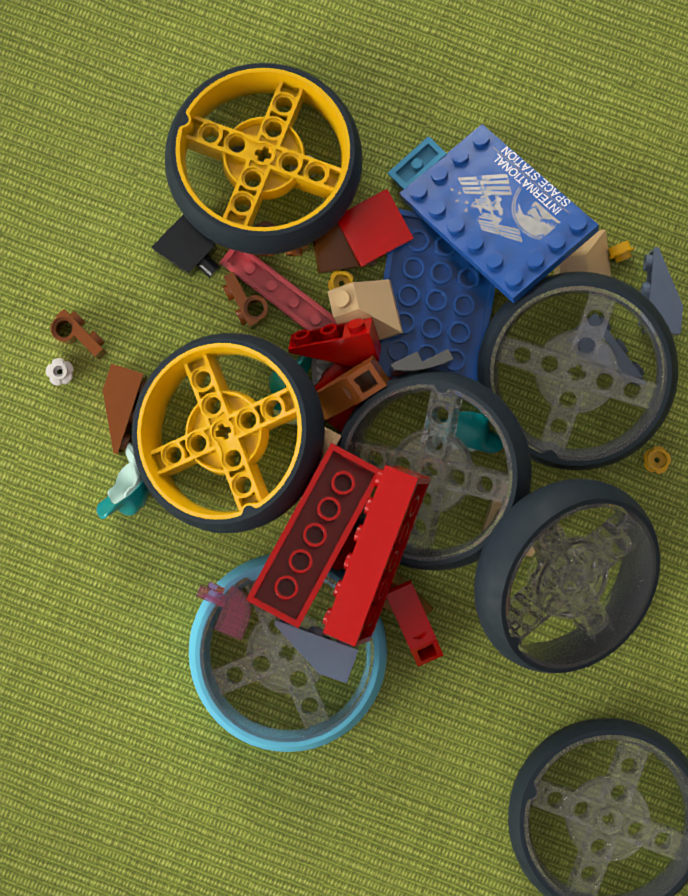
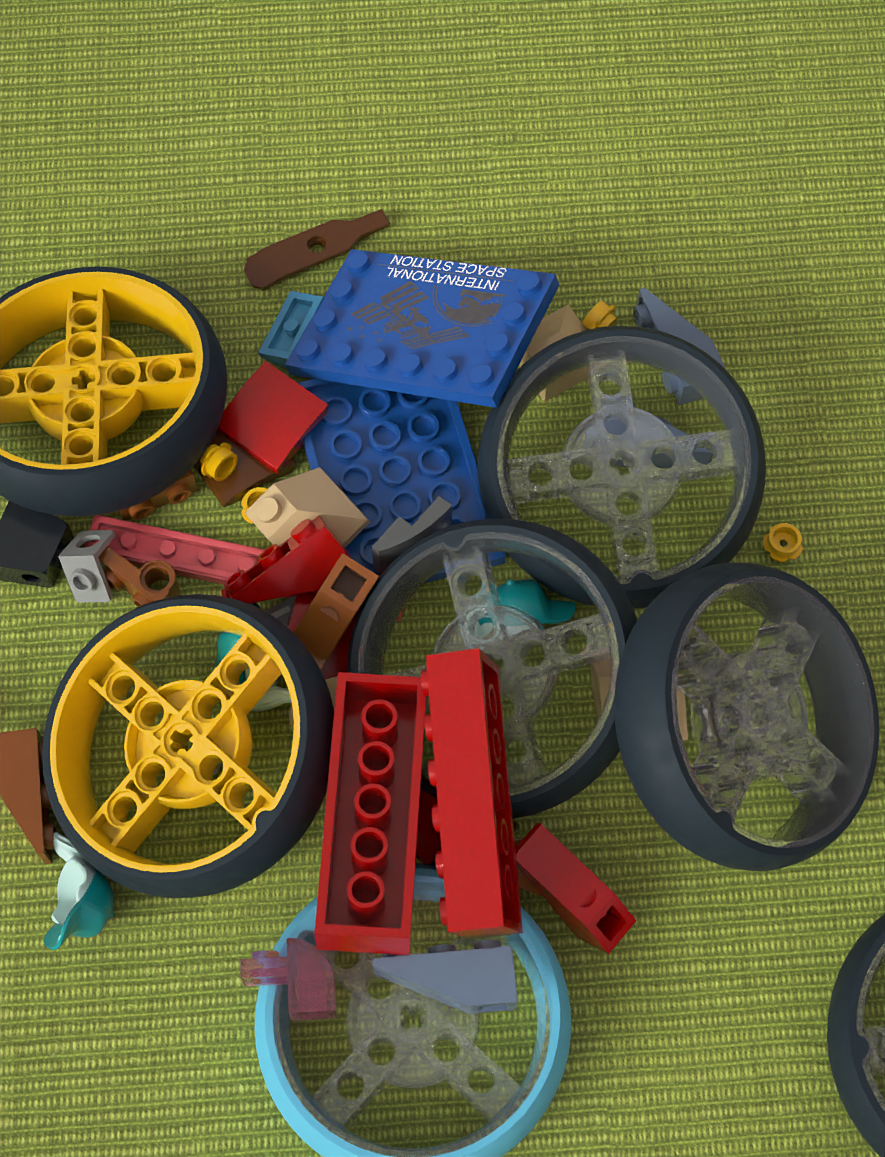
camera: 25 degrees left, 20 degrees down
(213, 278) = (84, 568): none -> light grey bracket
(326, 245) = (218, 461): none -> yellow plate
(441, 110) = (294, 253): none -> reddish brown piece

